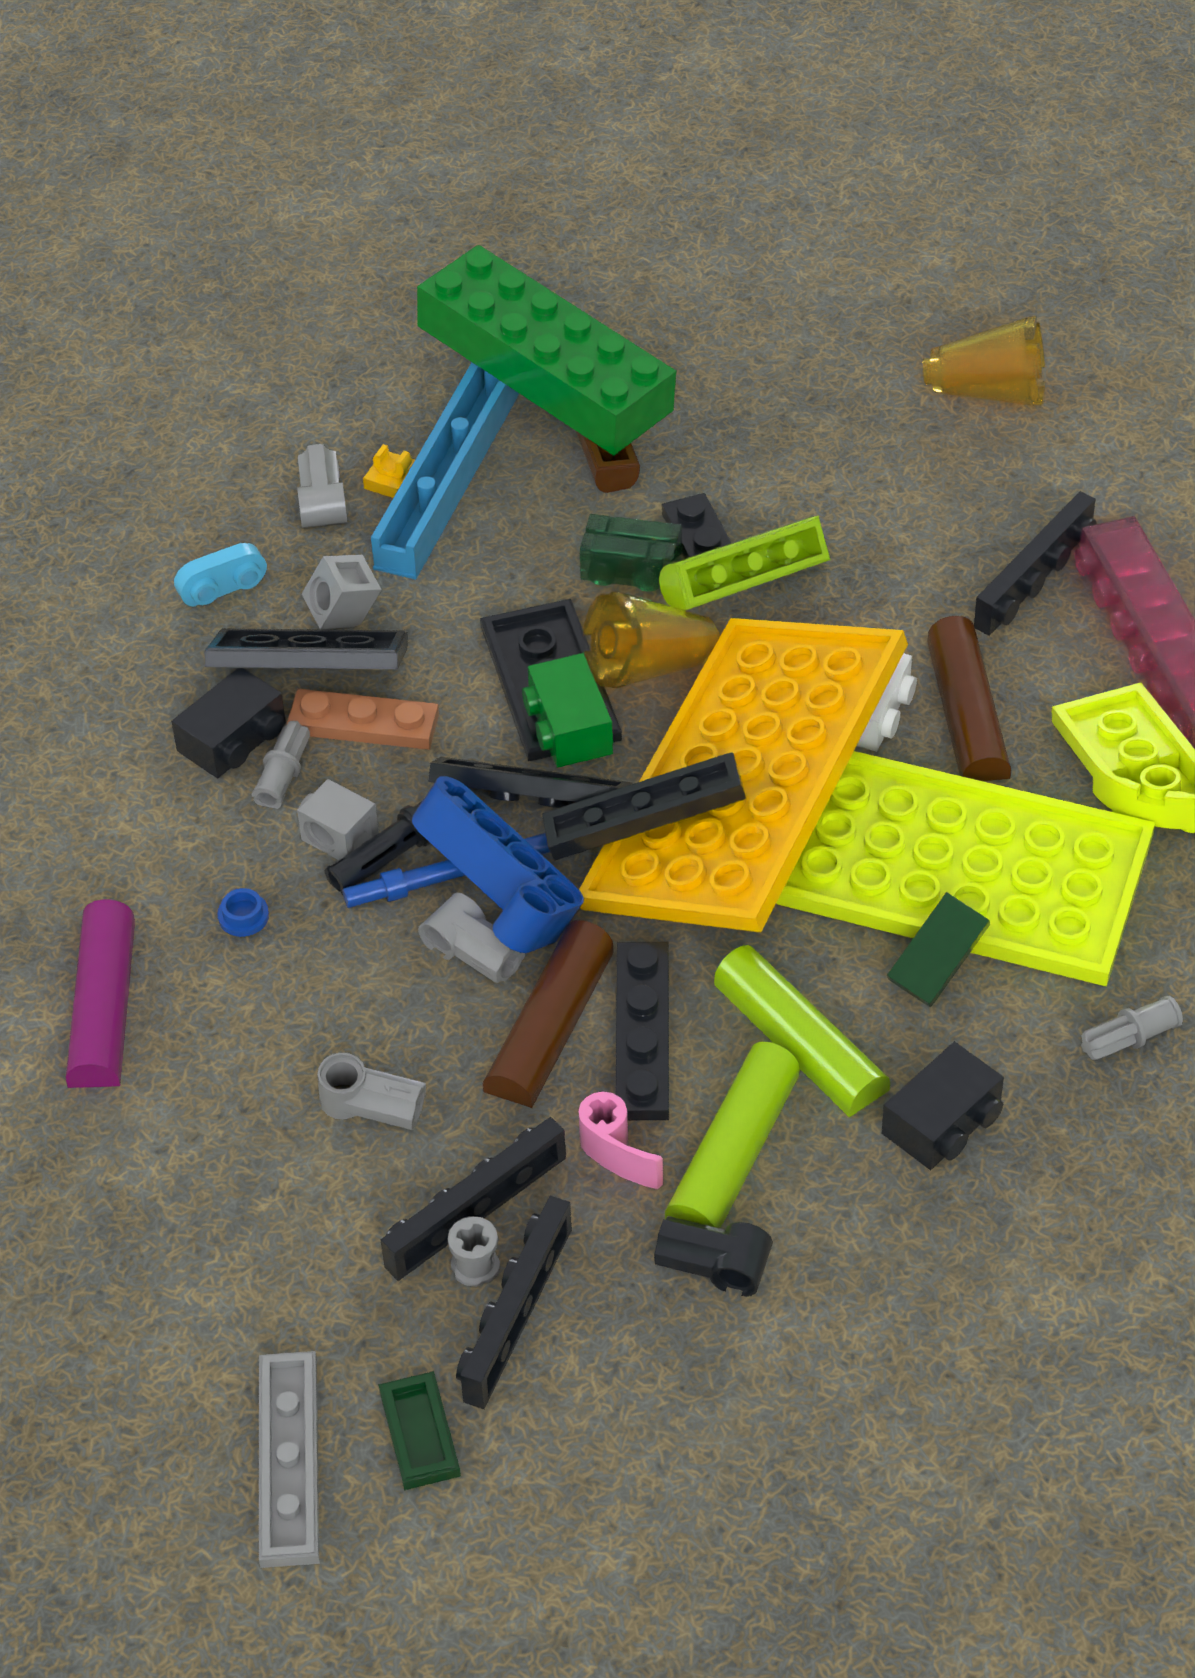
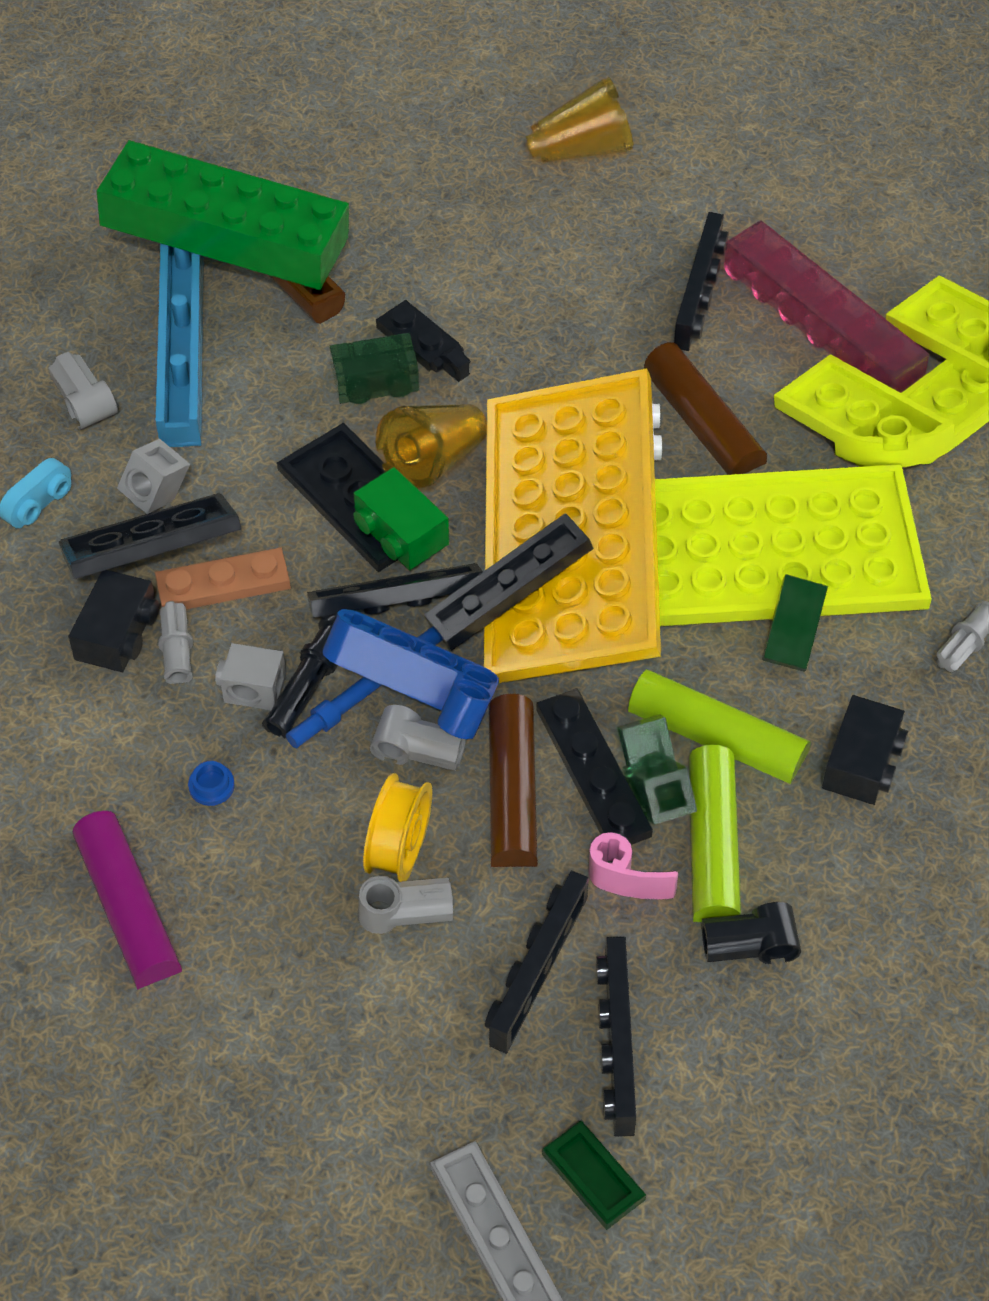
camera: 25 degrees left, 5 degrees up
(387, 471) = (135, 360): yellow tile -> none
(394, 1013) = (397, 827): none -> yellow wheel
(473, 1250) = (563, 991): light grey bush -> none
(698, 1047) = (653, 773): none -> clear green brick
(744, 564) = (477, 352): lime brick -> none

